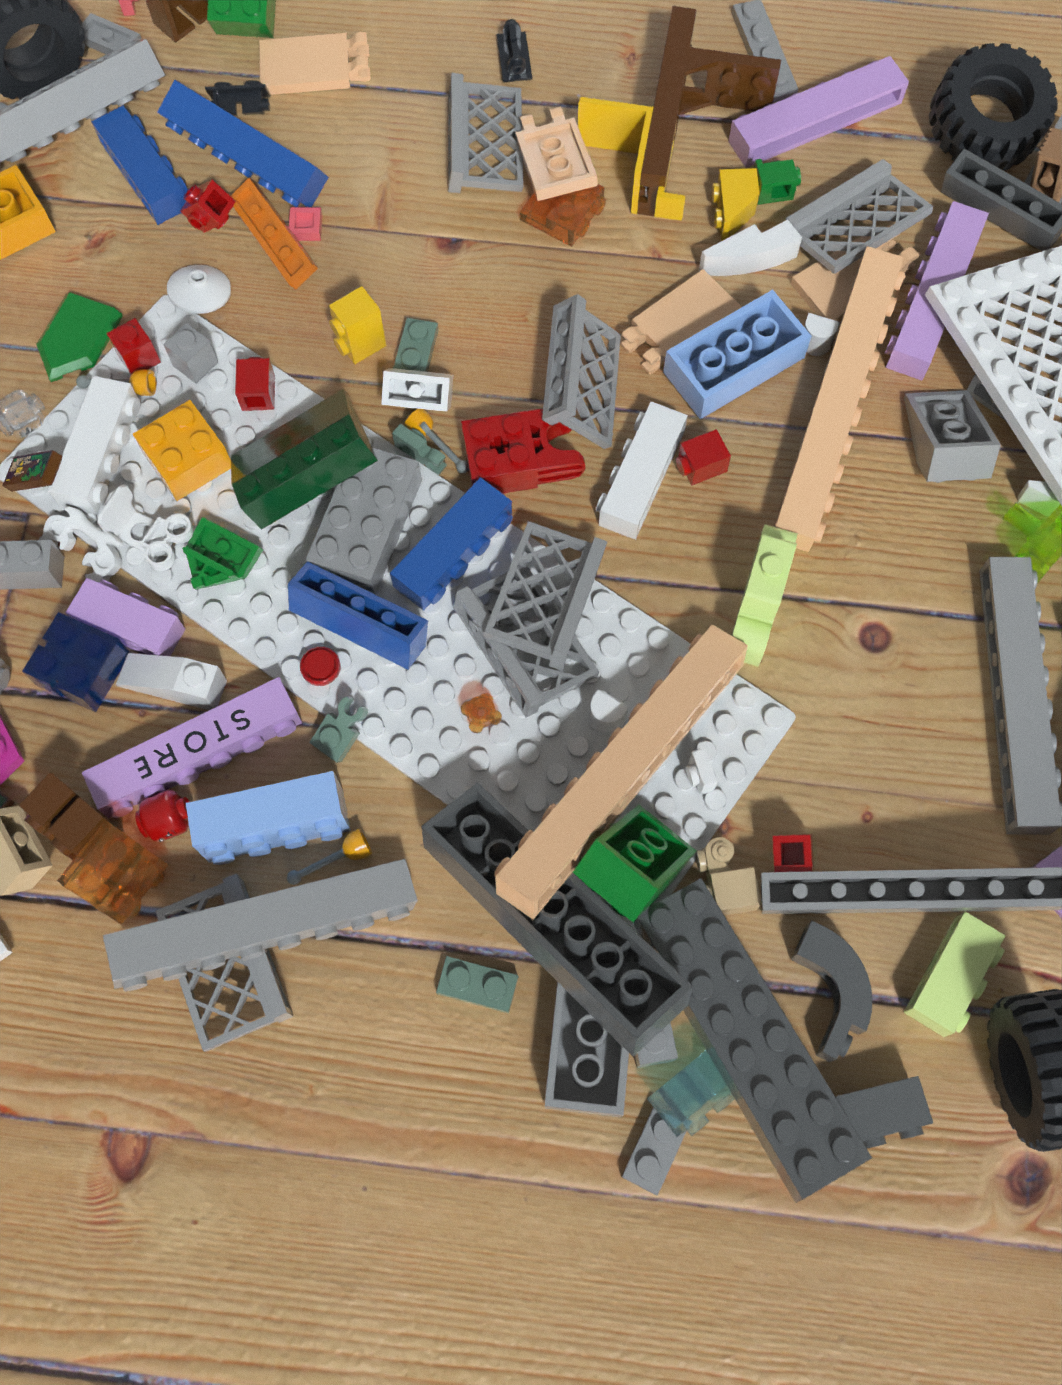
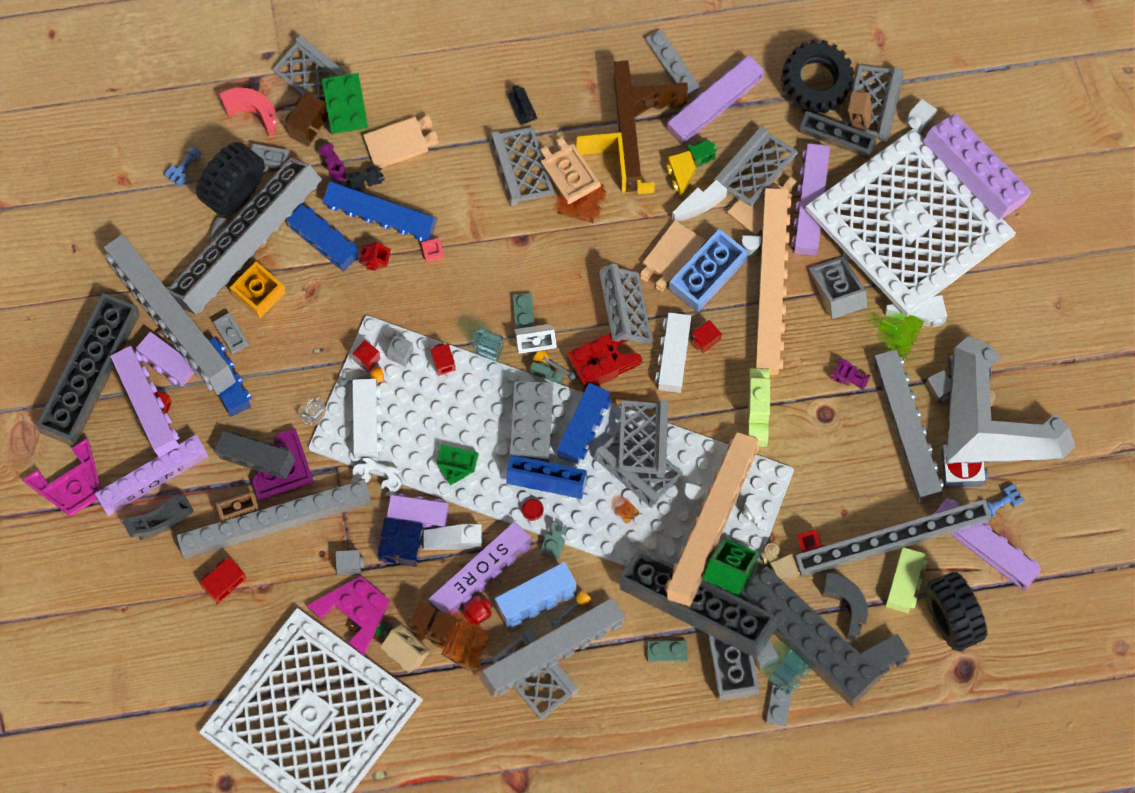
camera: 15 degrees left, 0 degrees up
(32, 471) = (338, 443): tile -> none
(76, 335) = (323, 354): green tile -> none
(121, 518) = (420, 460): white piece -> none
(183, 450) = (417, 409): light orange brick -> none
(197, 64) = (333, 163): none -> magenta connector
(198, 289) = (385, 313): white dish -> none
(273, 234) = (417, 262): orange plate -> none
(300, 460) = (487, 397): dark green slope -> none
(334, 372) = (488, 344): none -> clear light blue brick
(357, 325) = (489, 309): yellow piece -> none
(933, 580) = (848, 374): none -> magenta connector

